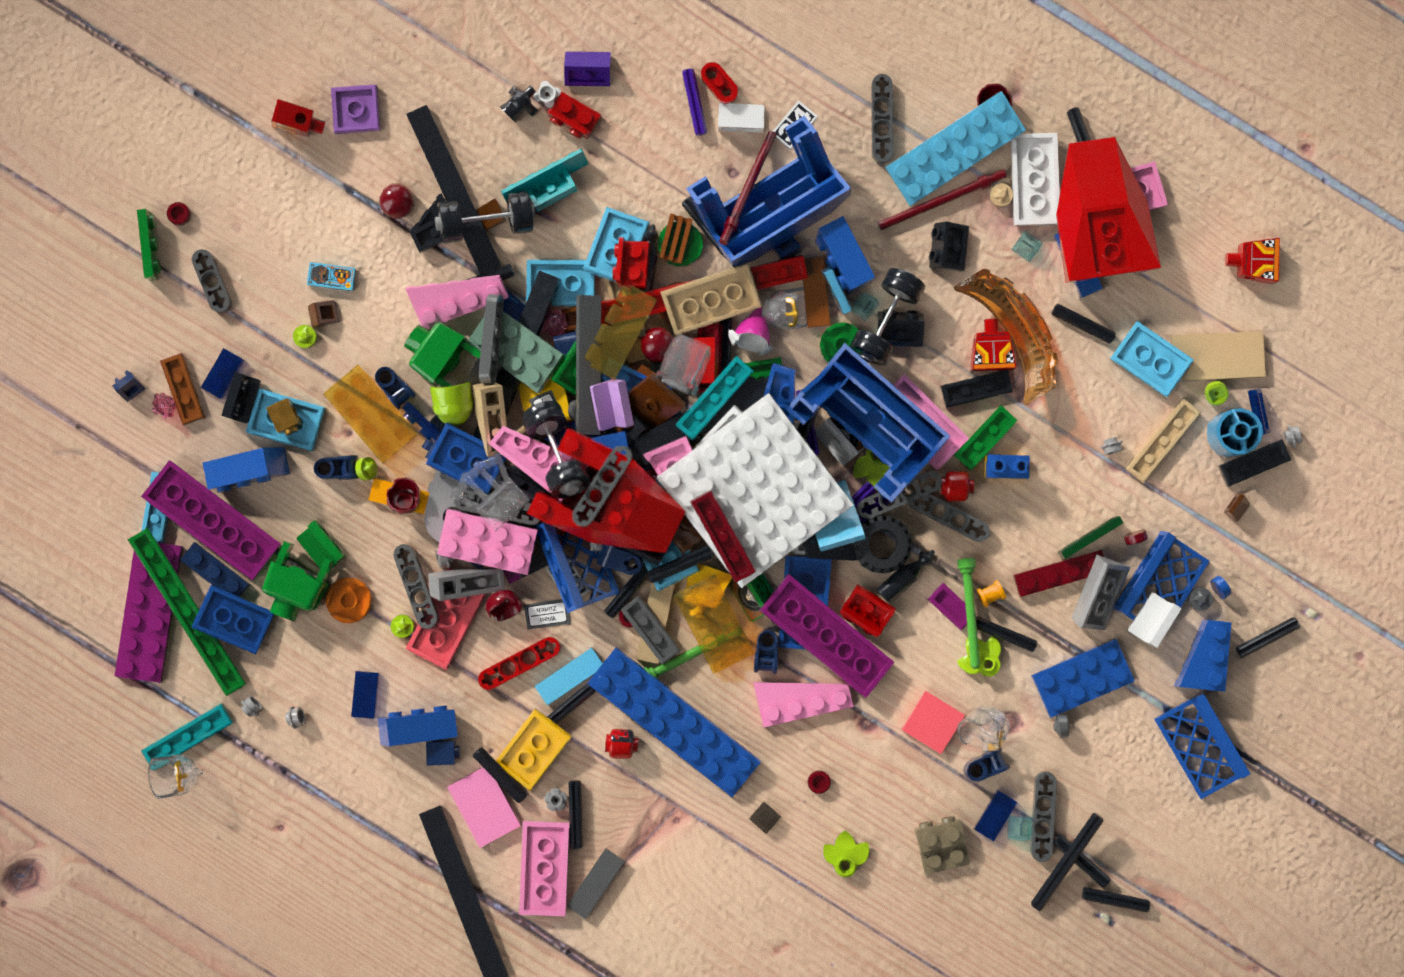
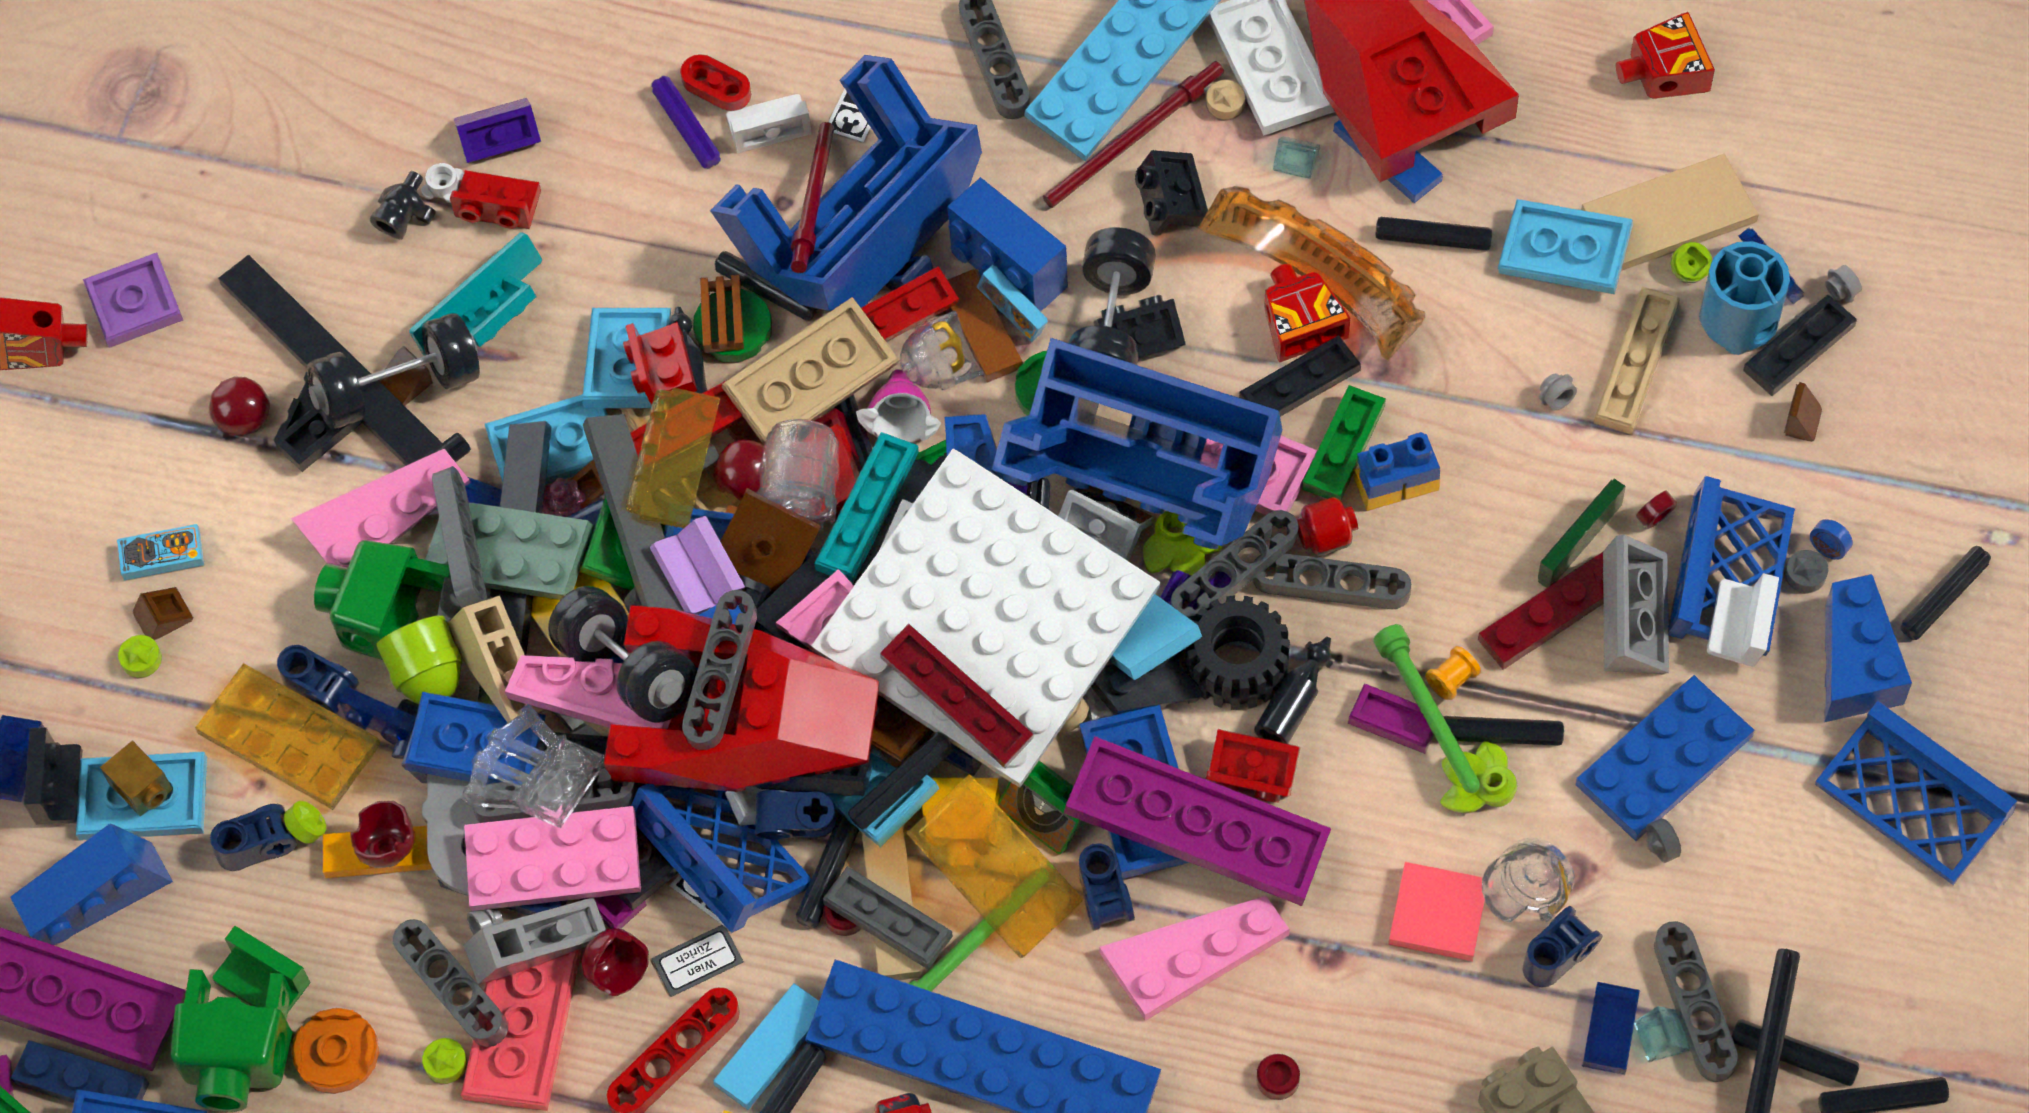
camera: 10 degrees left, 25 degrees down
(864, 306) = (1069, 317): clear light blue slope -> none

